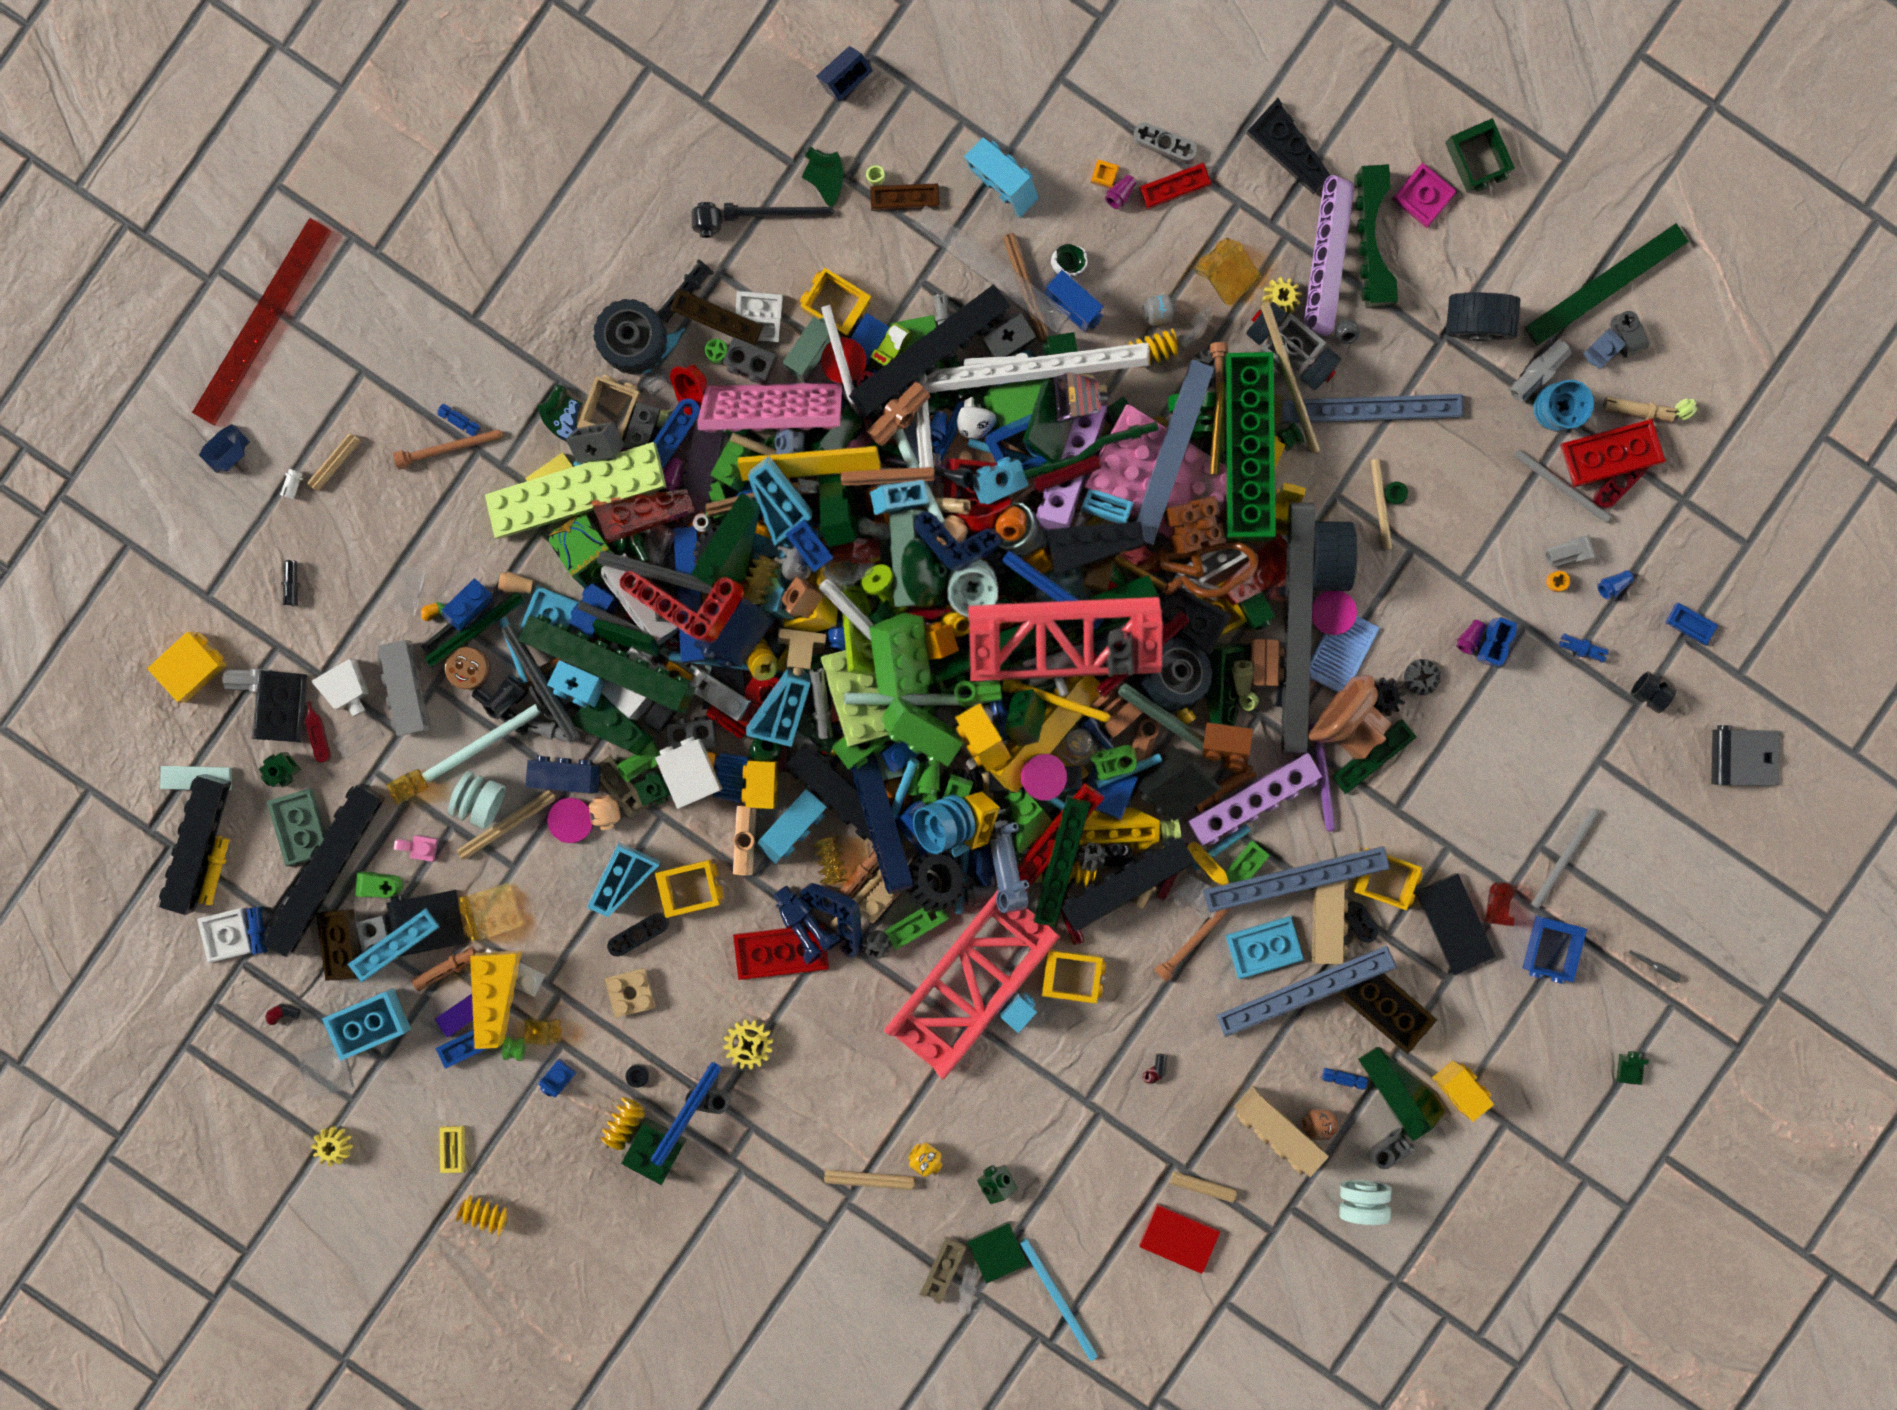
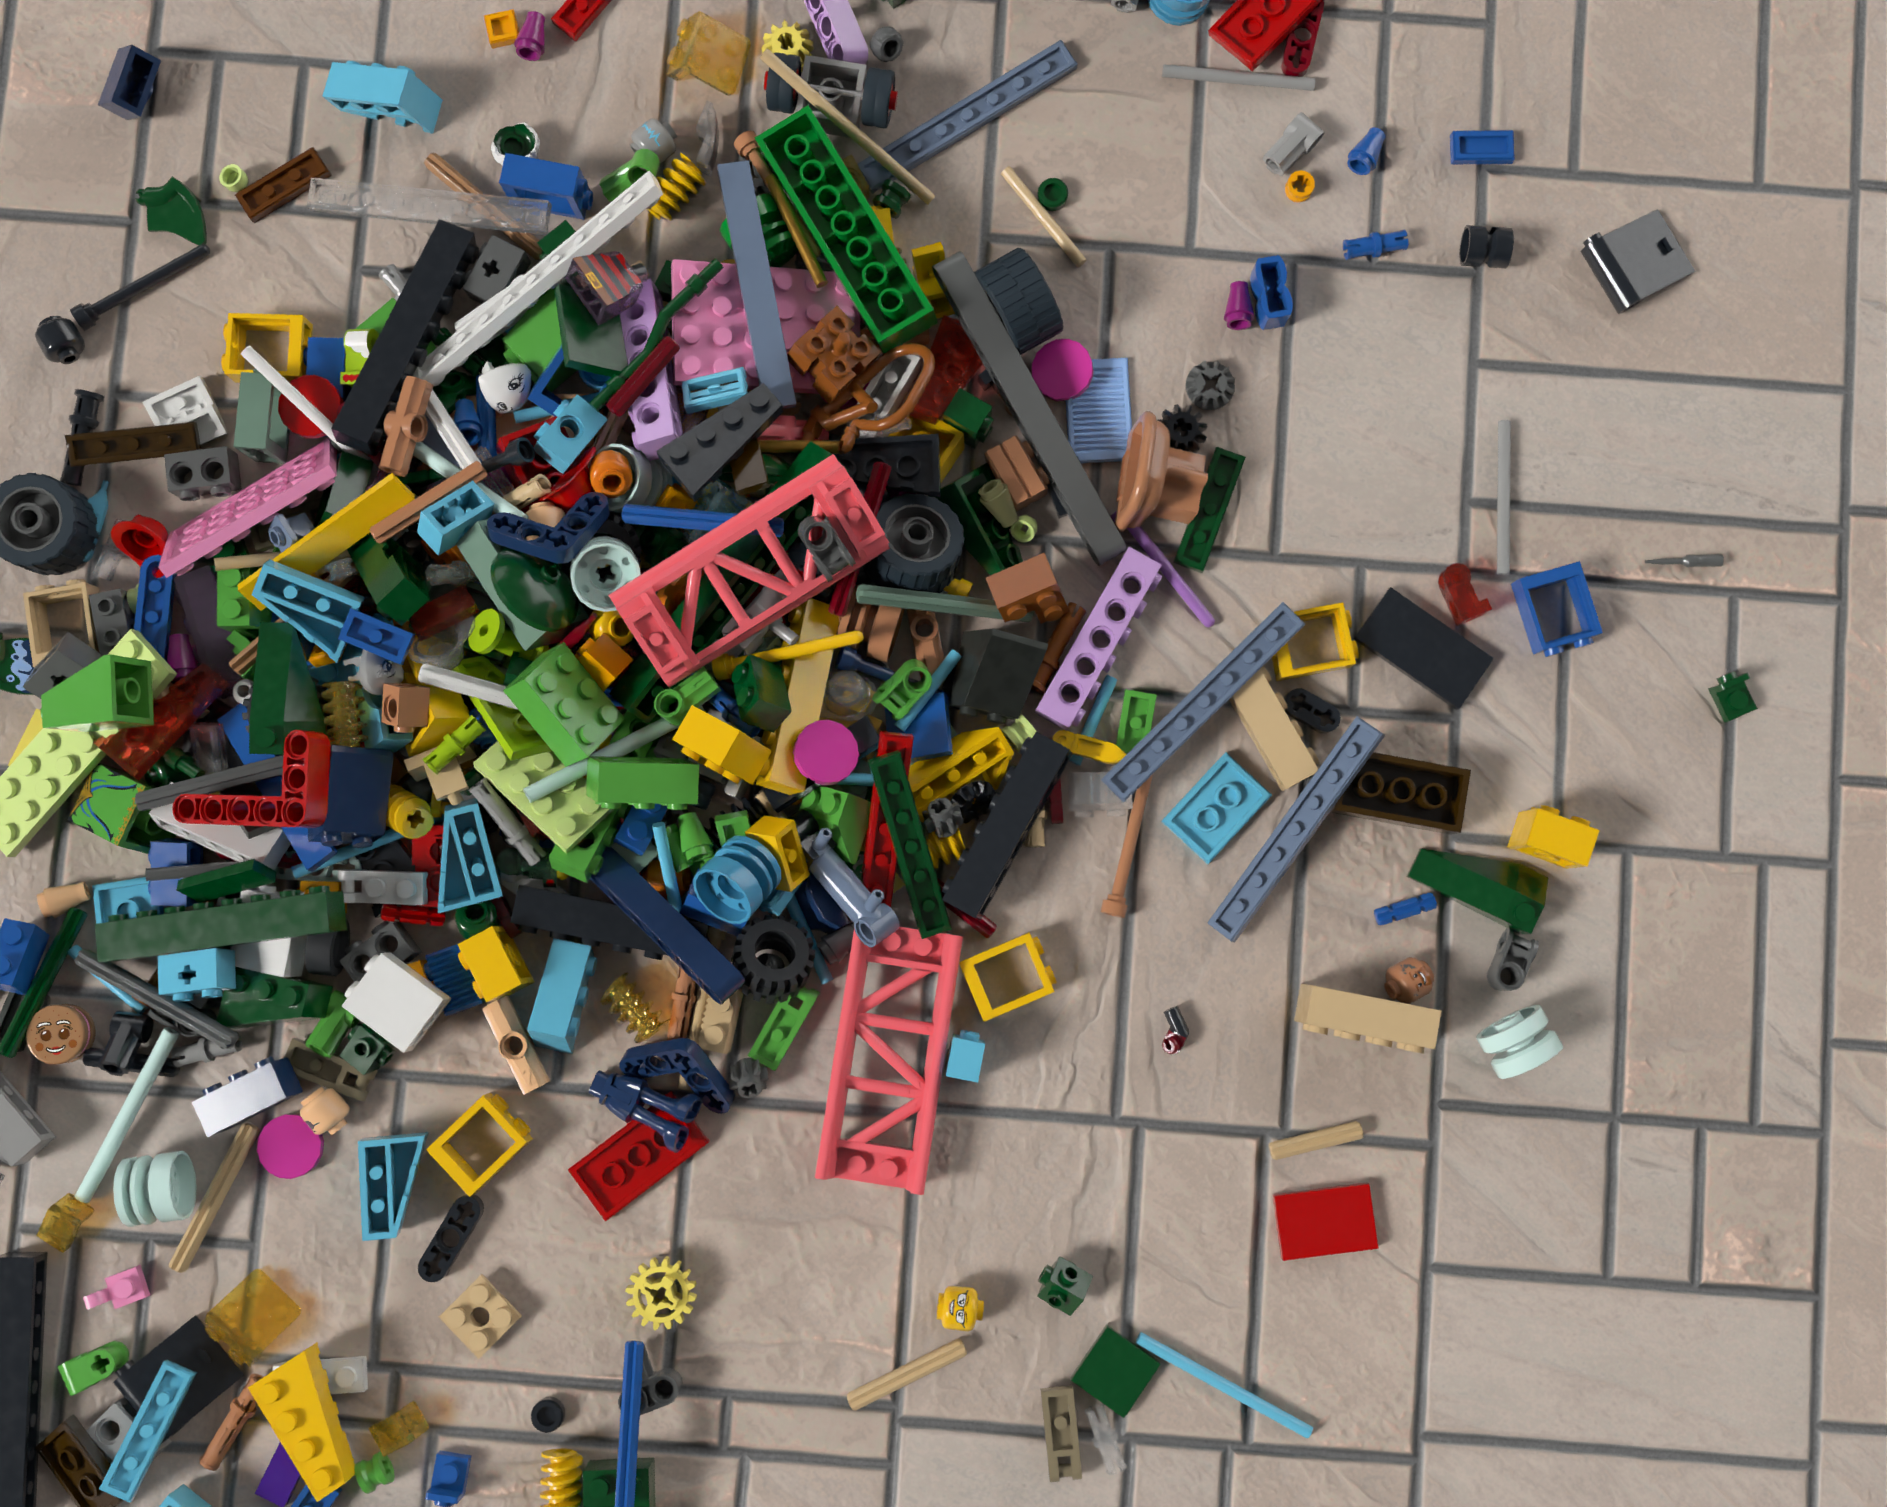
camera: 30 degrees left, 5 degrees down
(615, 481) = (101, 697): none -> bright green slope
(714, 348) = (149, 484): bright green wheel -> none
(817, 638) = (454, 744): none -> lime pin
(1132, 326) = (629, 173): none -> bright green piece

